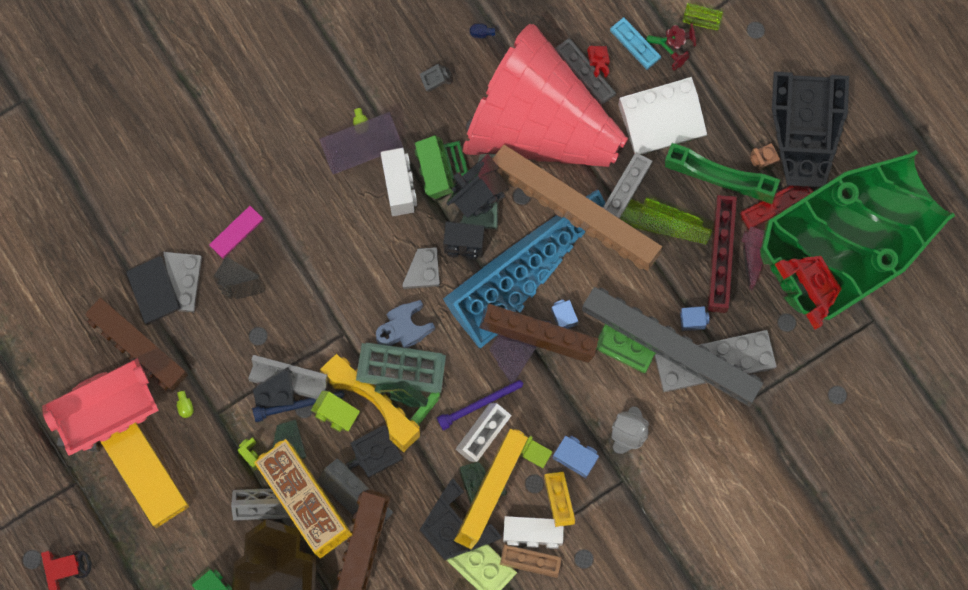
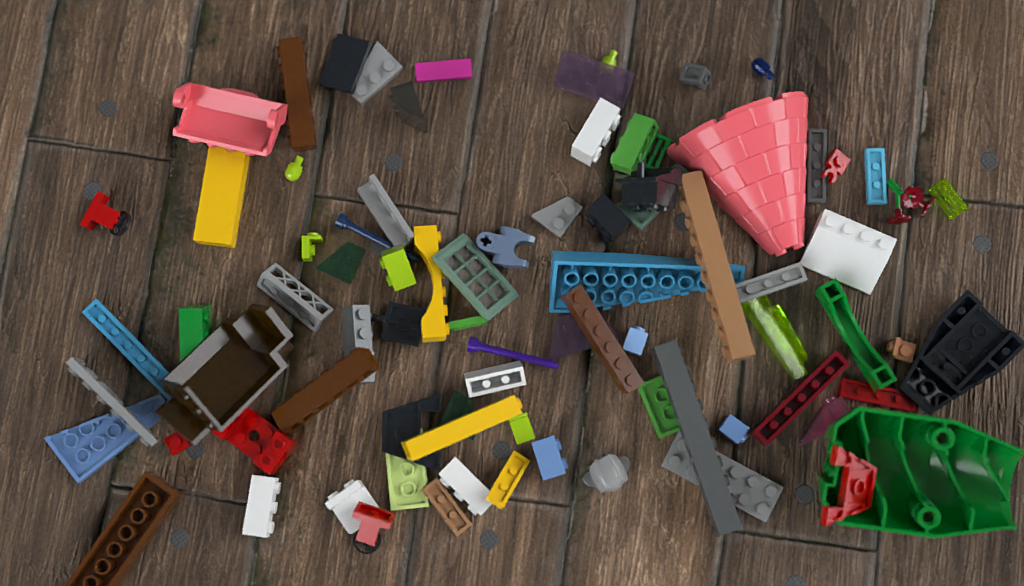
camera: 45 degrees right, 5 degrees up
(275, 391) = (368, 215): black wing -> none
(303, 498) = (315, 314): brick -> none
(404, 393) = (458, 296): clear green wing -> none

